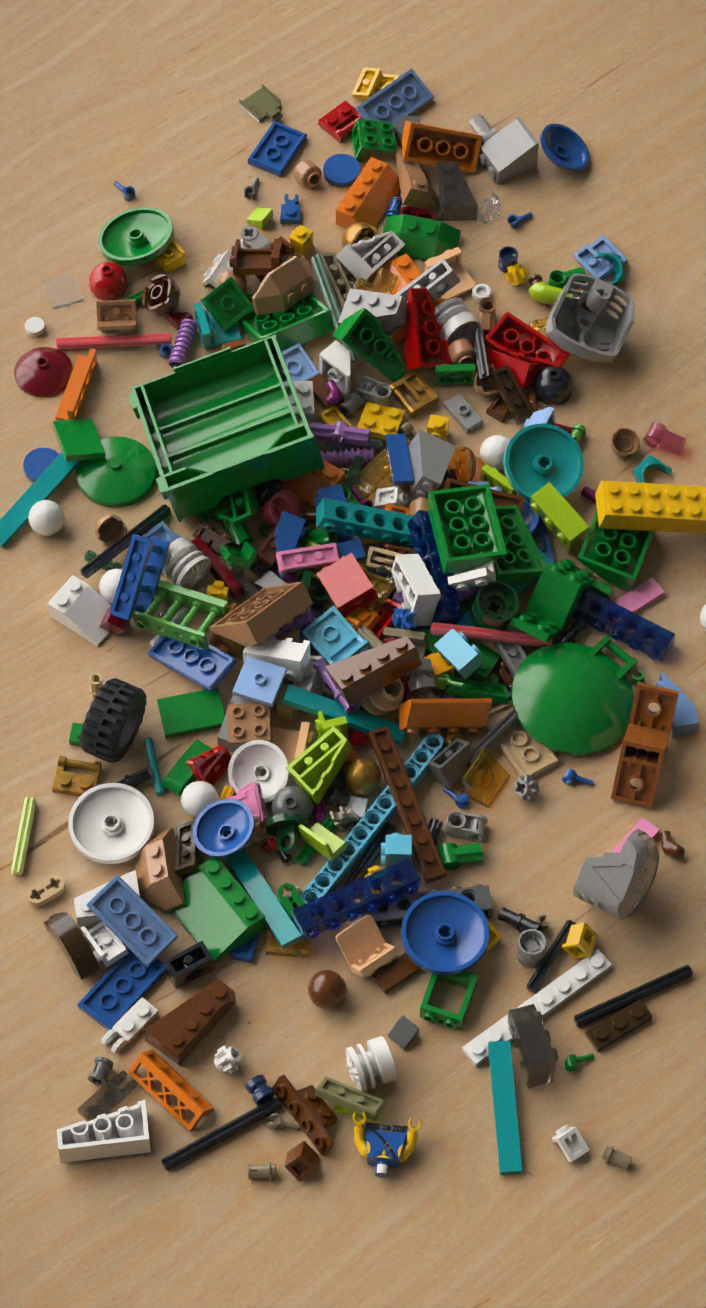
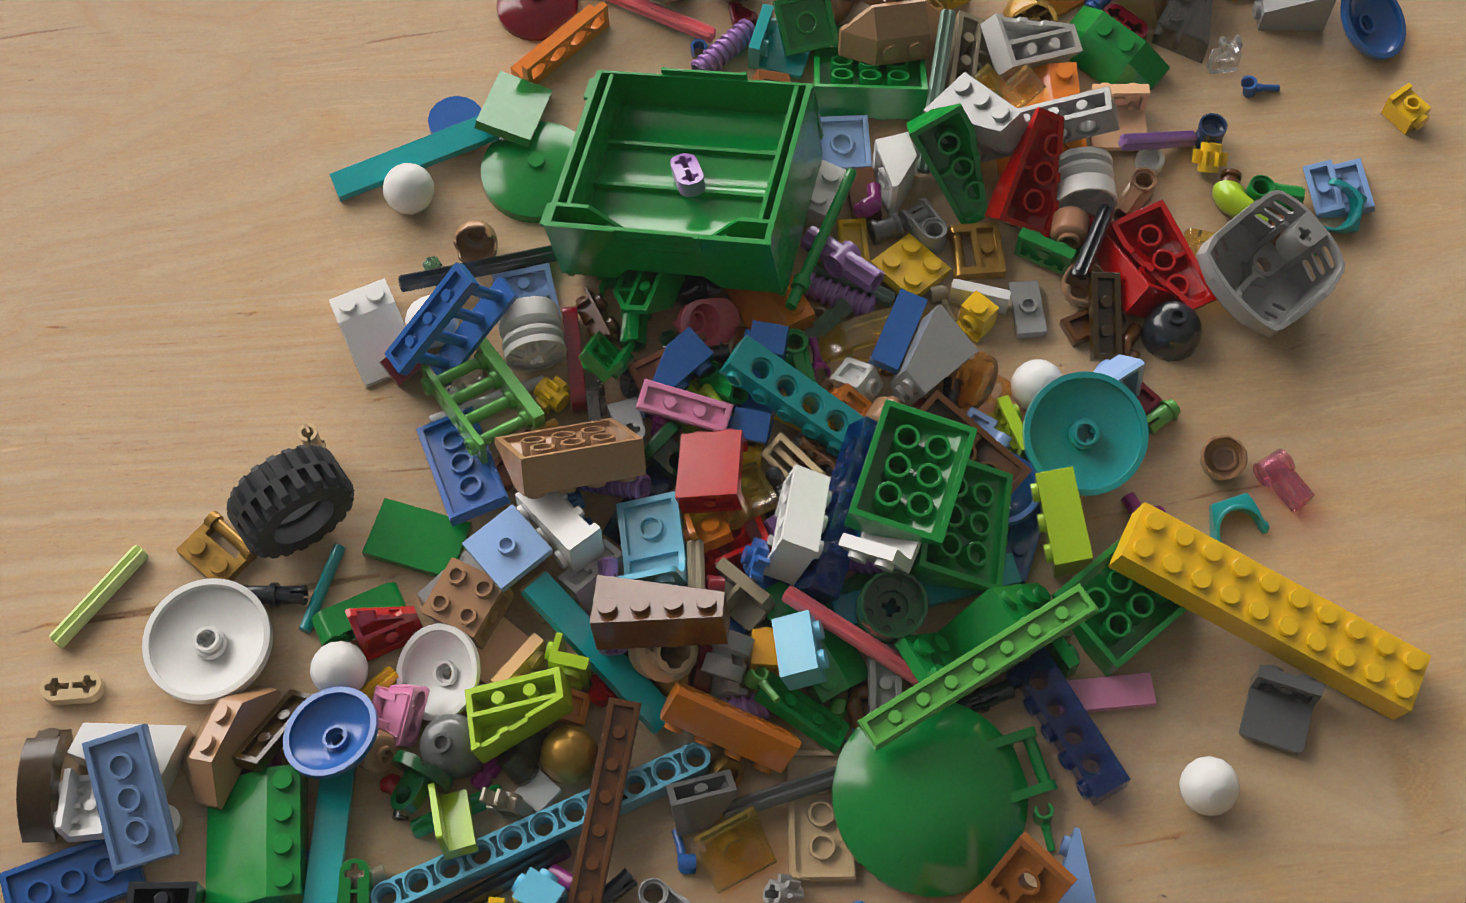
camera: 30 degrees right, 5 degrees up
(226, 424) = (687, 169): none -> medium lavender beam
(327, 456) = (801, 280): none -> green bar
(421, 419) = (962, 290): none -> white tile
(480, 278) = (1157, 140): none -> medium lavender axle
(563, 611) = (977, 667): none -> bright green tile
(613, 193) = (1406, 109): none -> yellow brick

